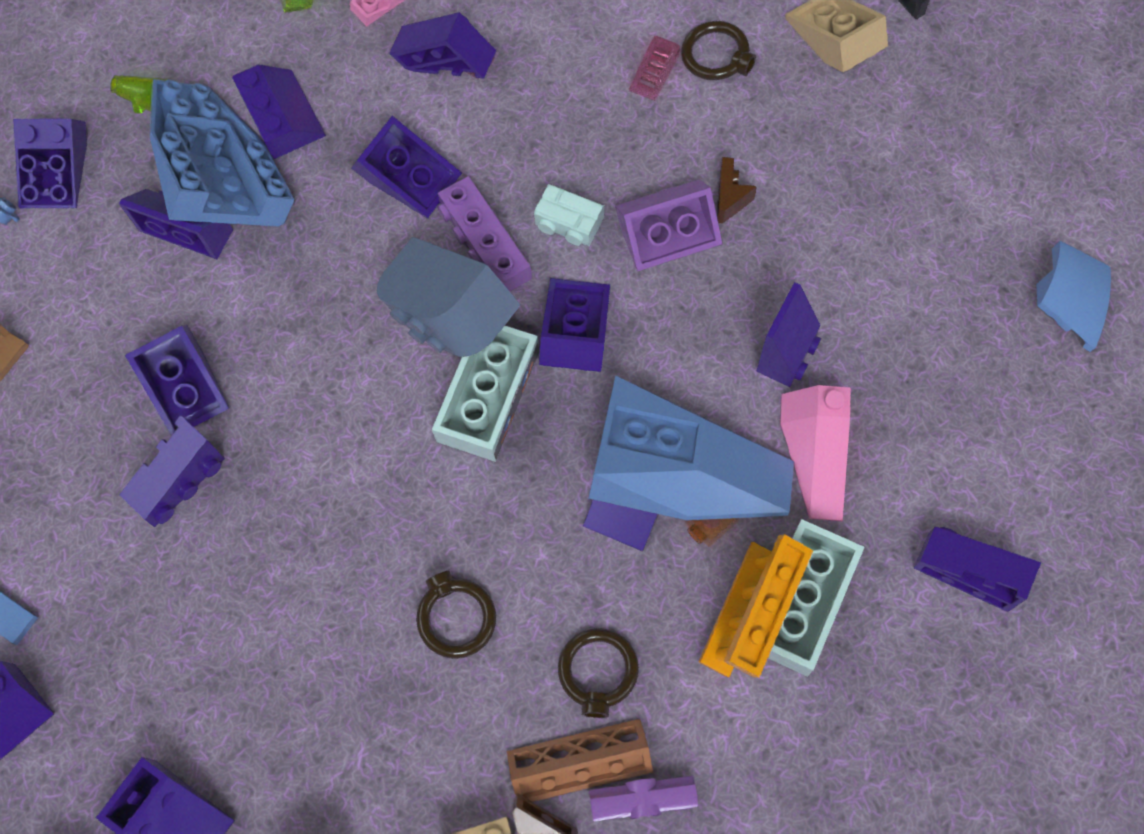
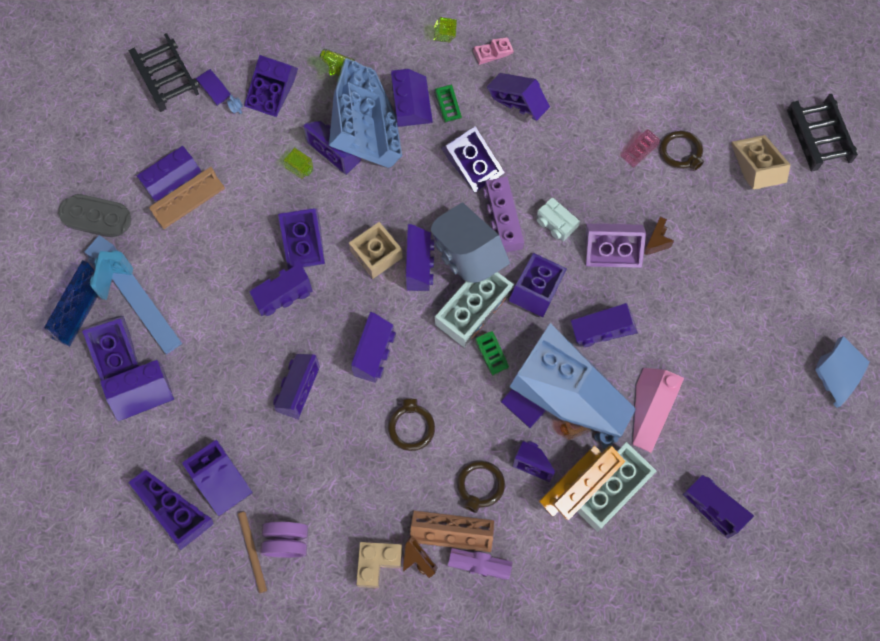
camera: 15 degrees right, 0 degrees up
(134, 266) = (298, 163): none -> clear neon green brick
(248, 618) = (297, 385): none -> dark purple slope
(302, 358) = (376, 250): none -> tan brick
(327, 80) = (443, 91): none -> green slope
(350, 514) = (373, 348): none -> dark purple slope
(375, 349) = (418, 259): none -> dark purple slope
(534, 462) = (494, 343): none -> green slope
(668, 601) = (533, 461): none -> dark purple slope
(699, 351) = (604, 325): none -> dark purple wedge
(767, 531) = (605, 442): none -> medium blue plate
(790, 339) = (659, 337): dark purple slope -> none

